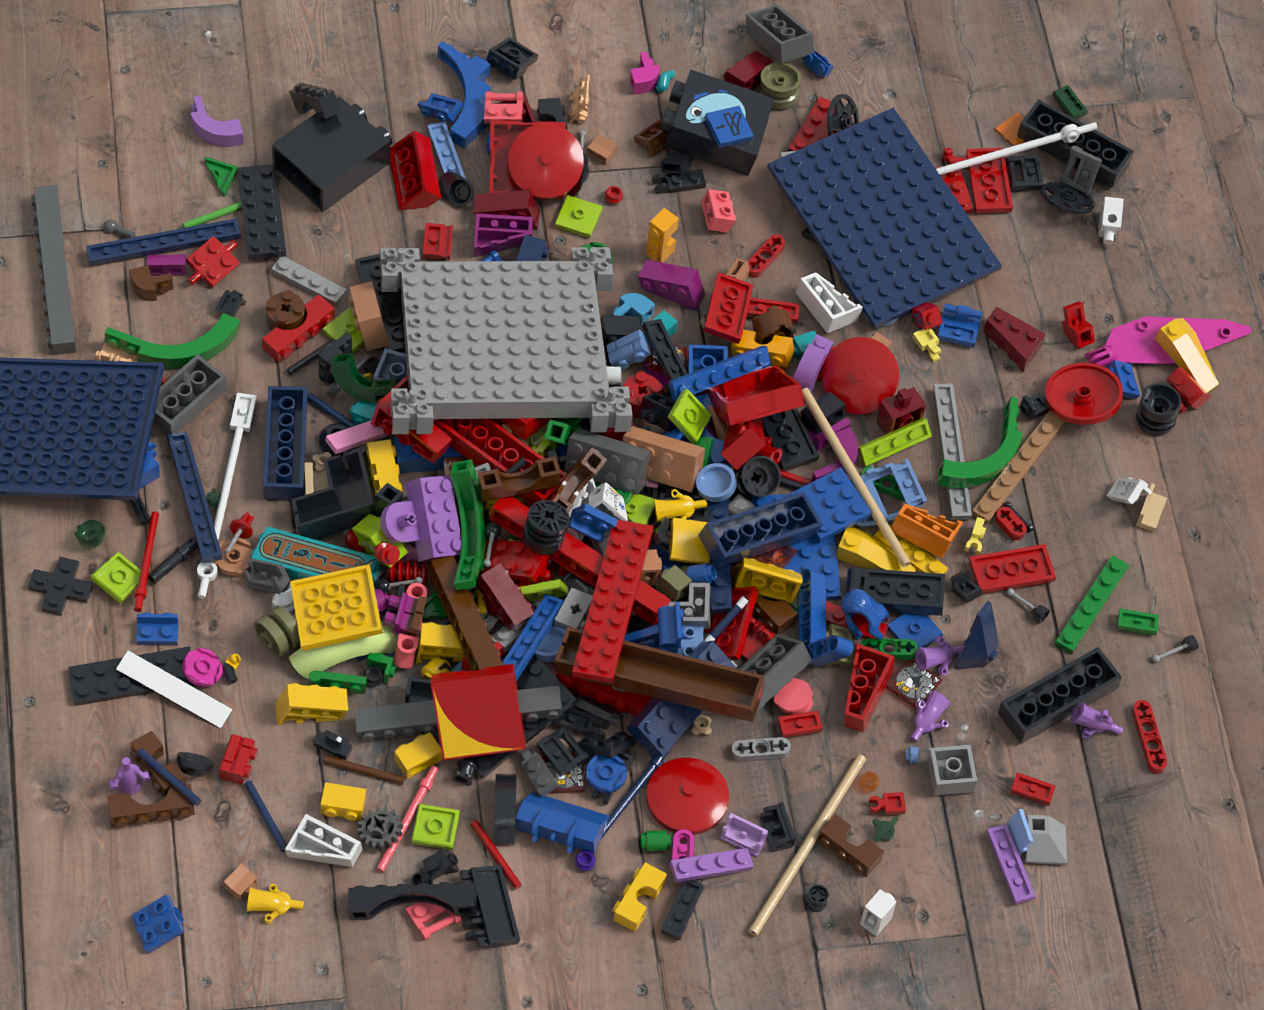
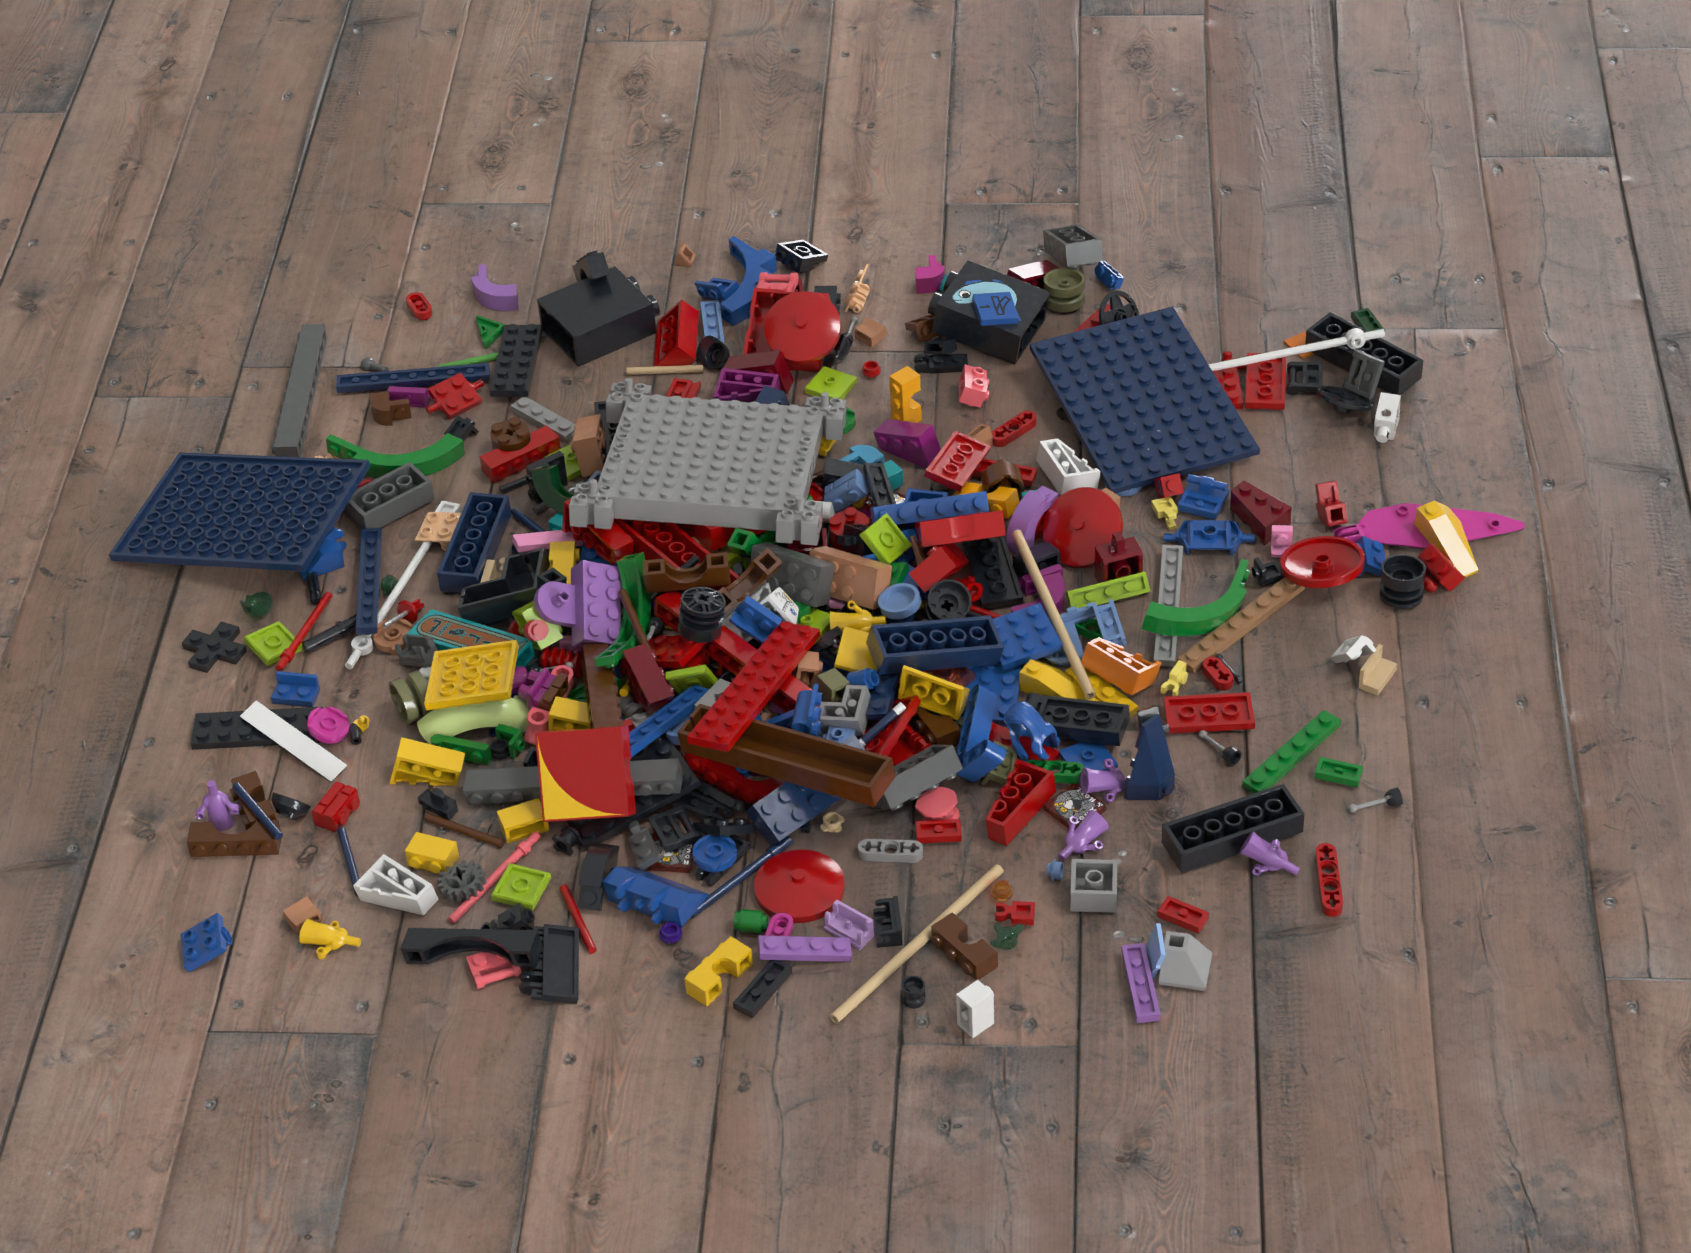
camera: 20 degrees right, 15 degrees down
(143, 151) = (419, 305): none -> red plate
(246, 427) = (438, 528): none -> light nougat hinge
(395, 65) = (685, 256): none -> nougat slope
(411, 210) = (664, 369): none -> tan bar
(477, 533) = (633, 617): none -> reddish brown bar
(960, 373) = (1193, 535): none -> blue plate
(1040, 371) = (1280, 539): none -> bright pink bracket

